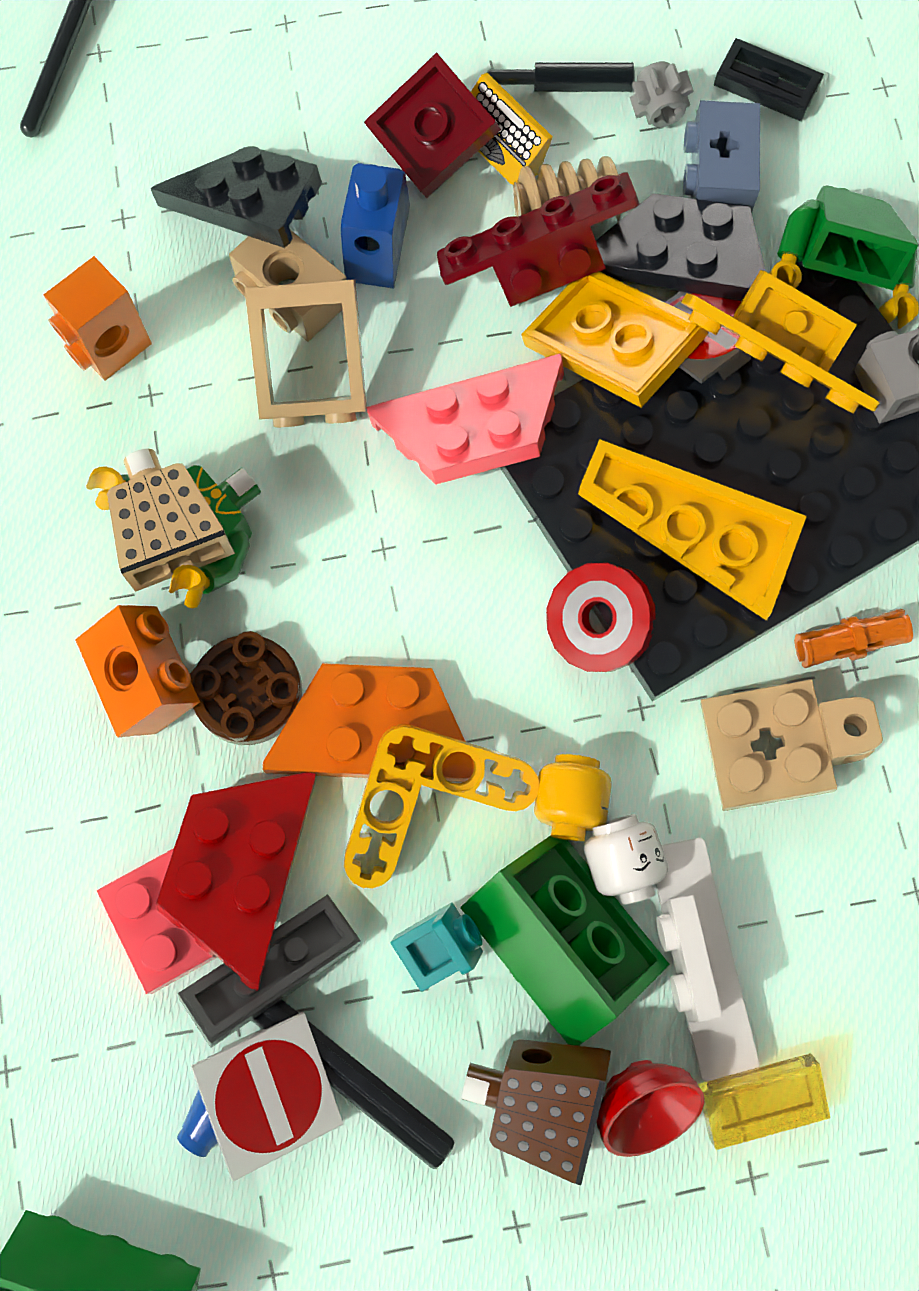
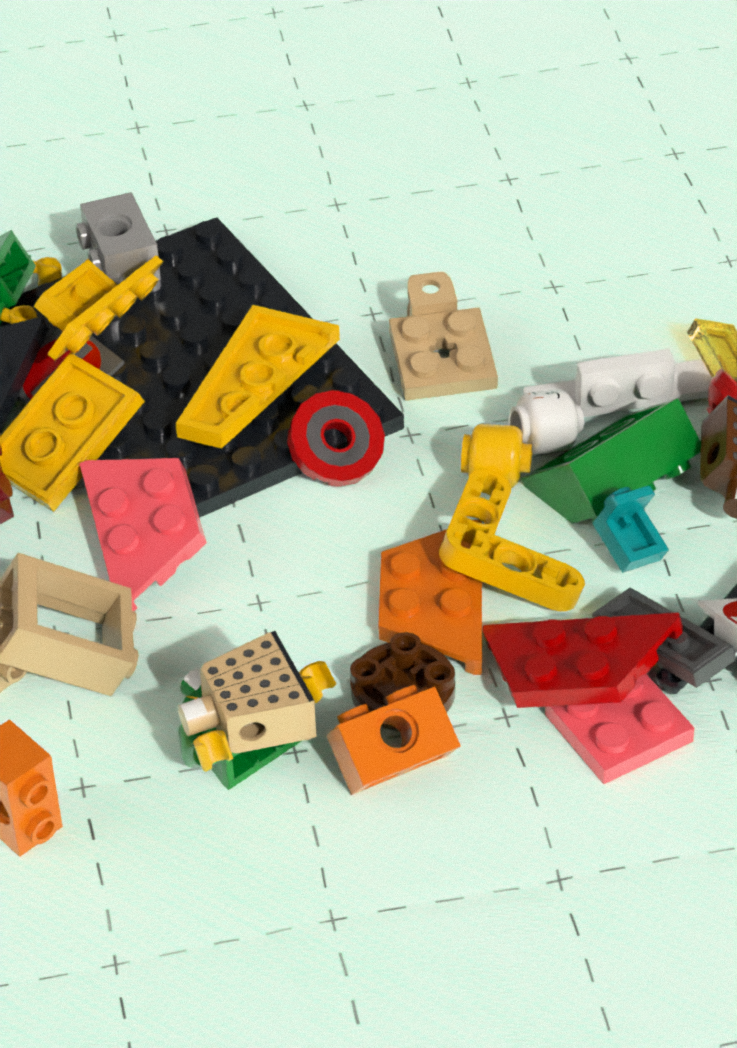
camera: 90 degrees left, 30 degrees down
(853, 638) = (349, 306): orange pin -> none

